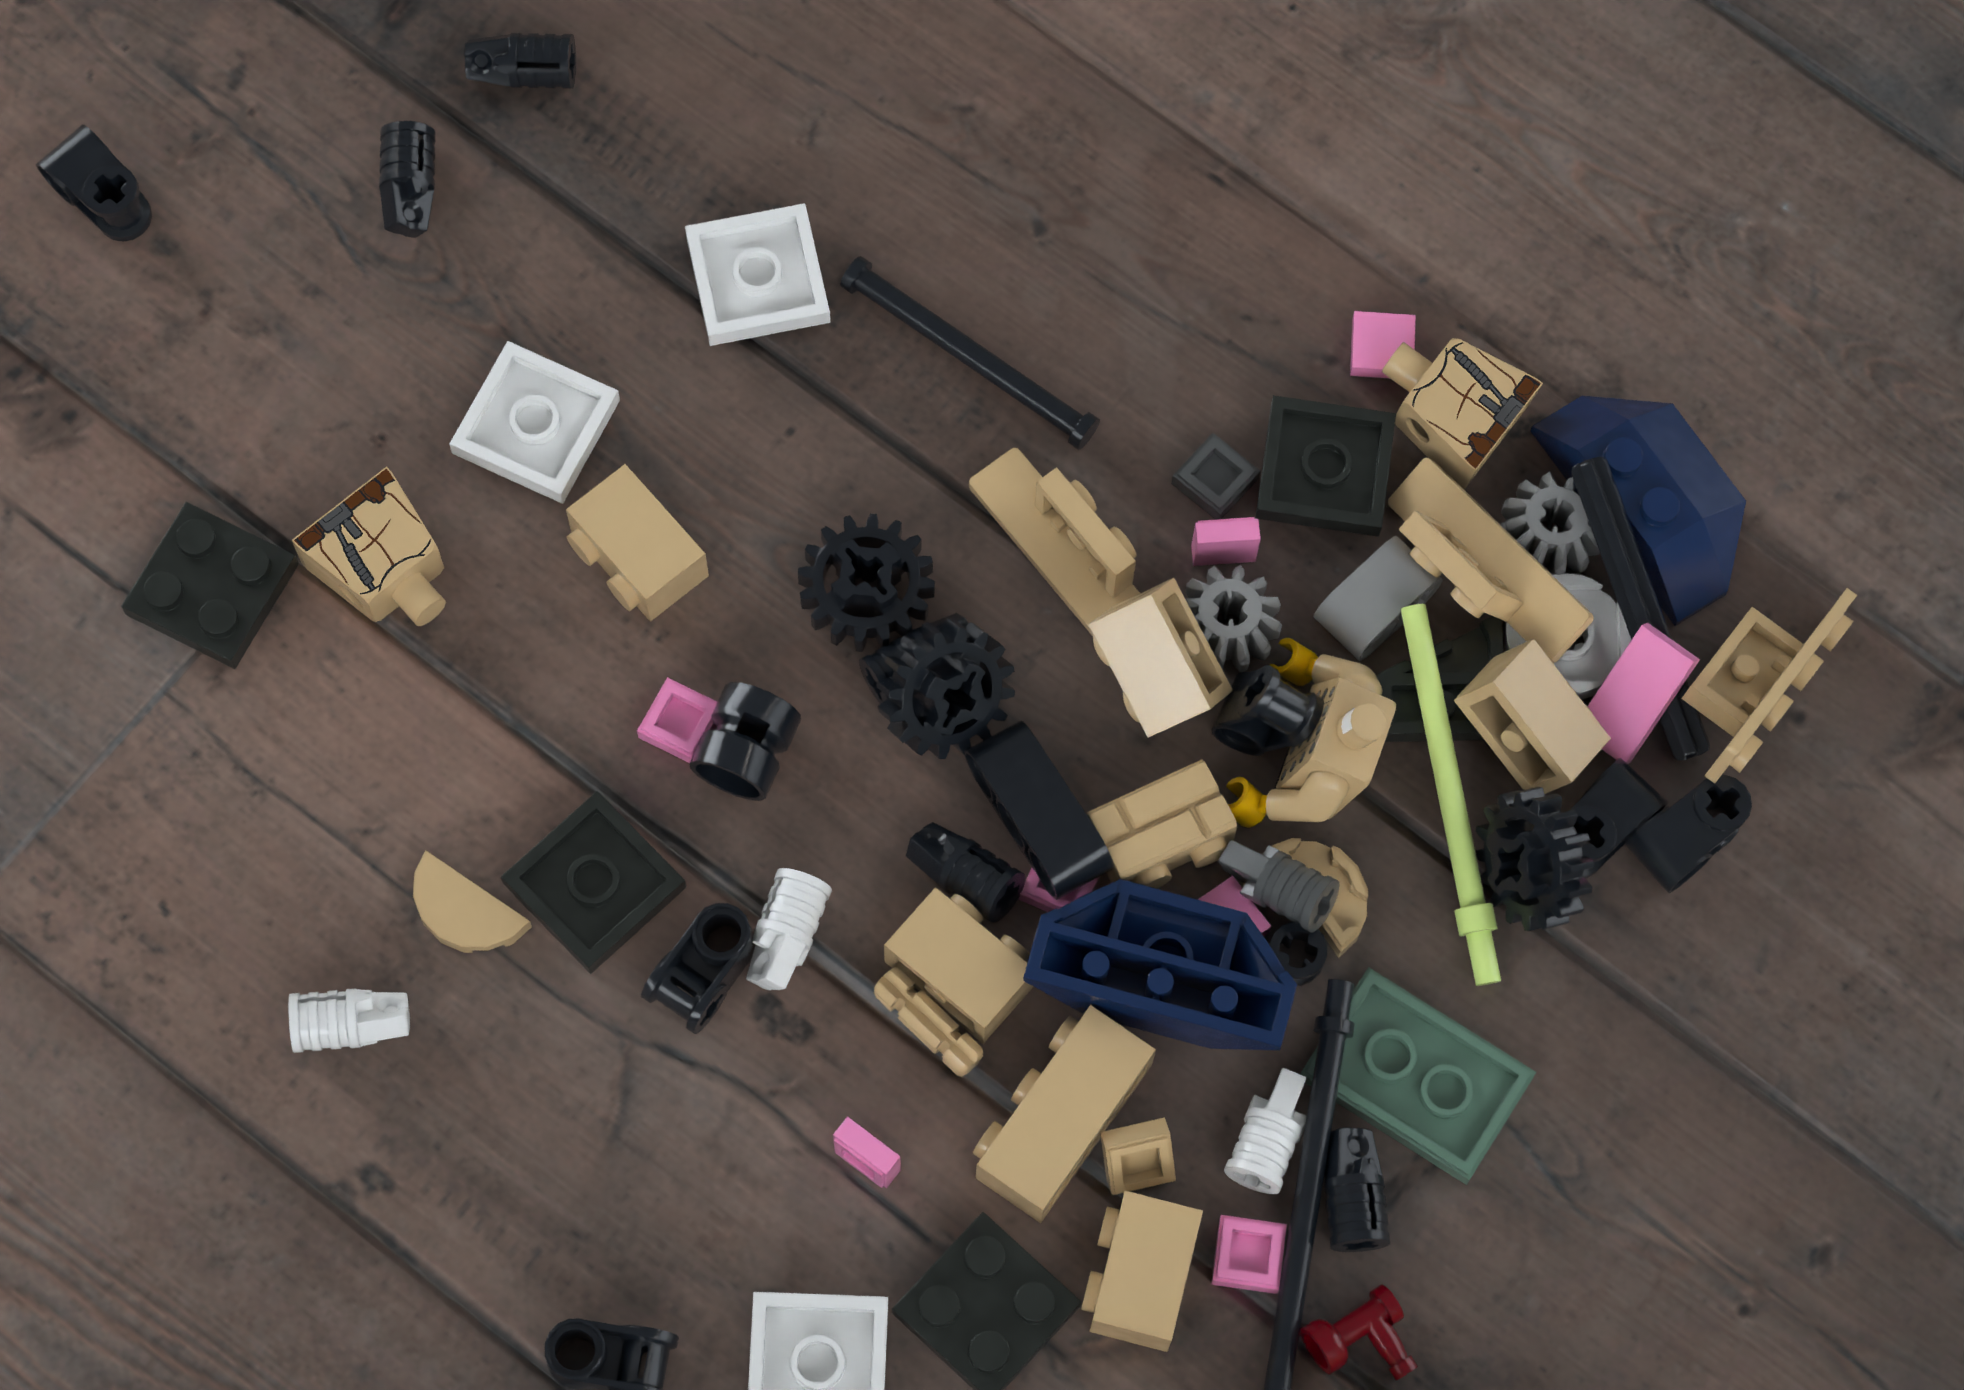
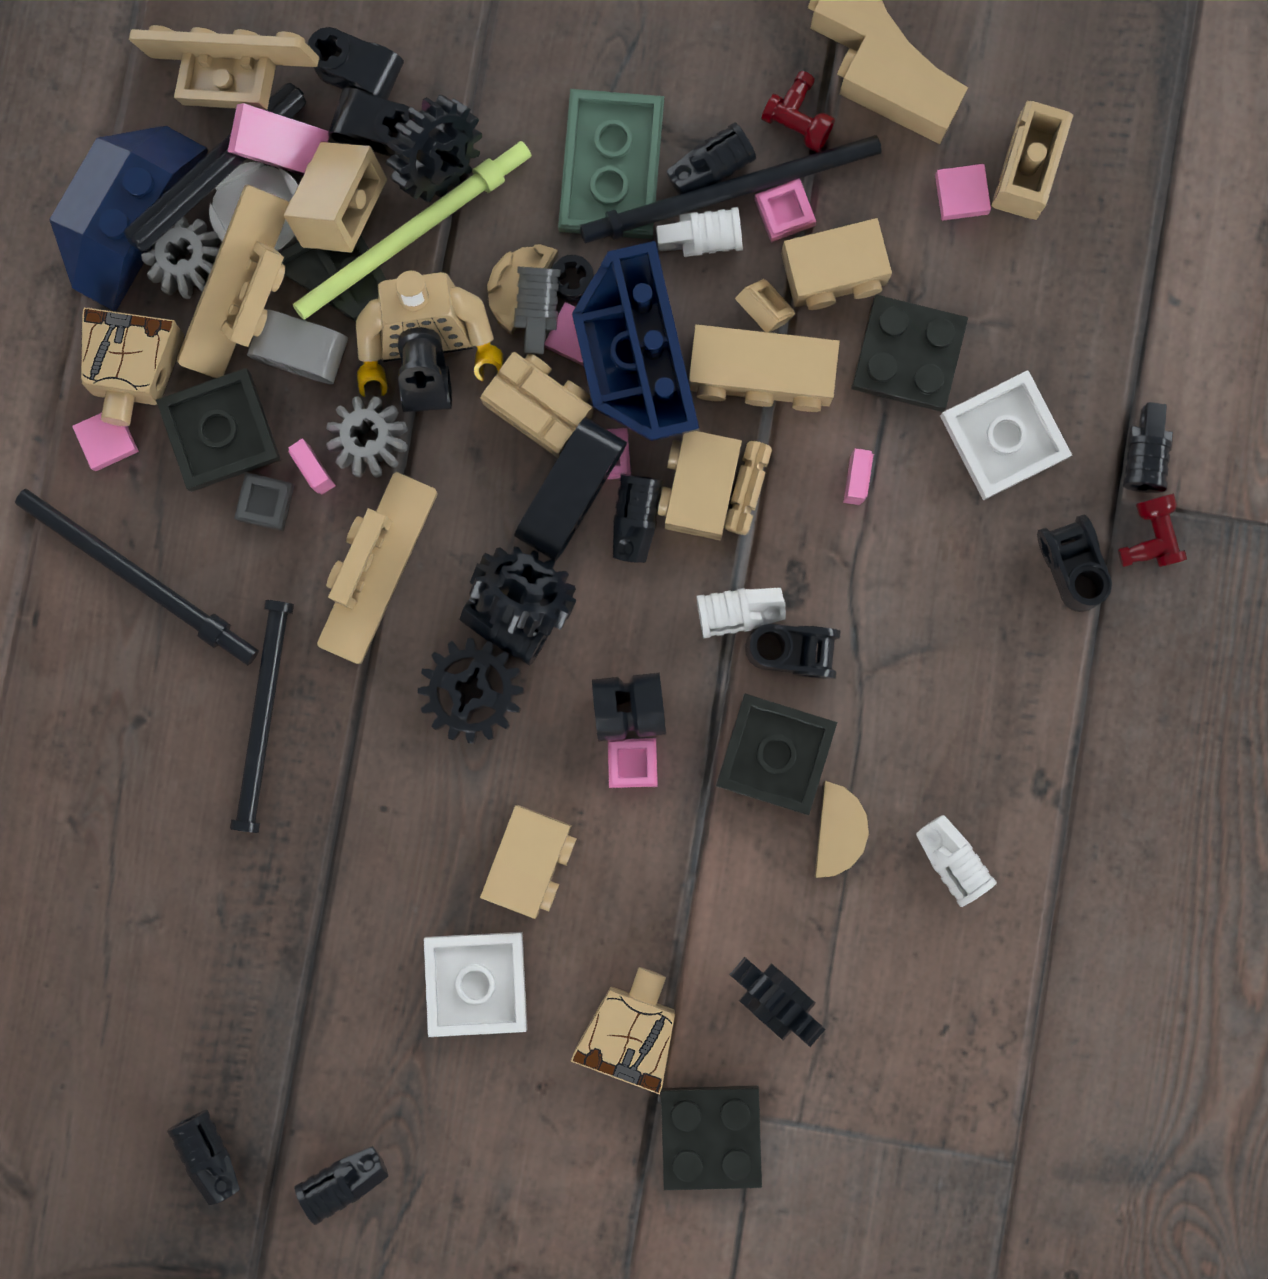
camera: 110 degrees left, 15 degrees up
(311, 718) = (777, 1002): none -> black gear
(757, 274) = (282, 893): white plate -> none
(1100, 347) = (210, 628): none -> black bar
(1159, 658) = (425, 460): tan brick -> none

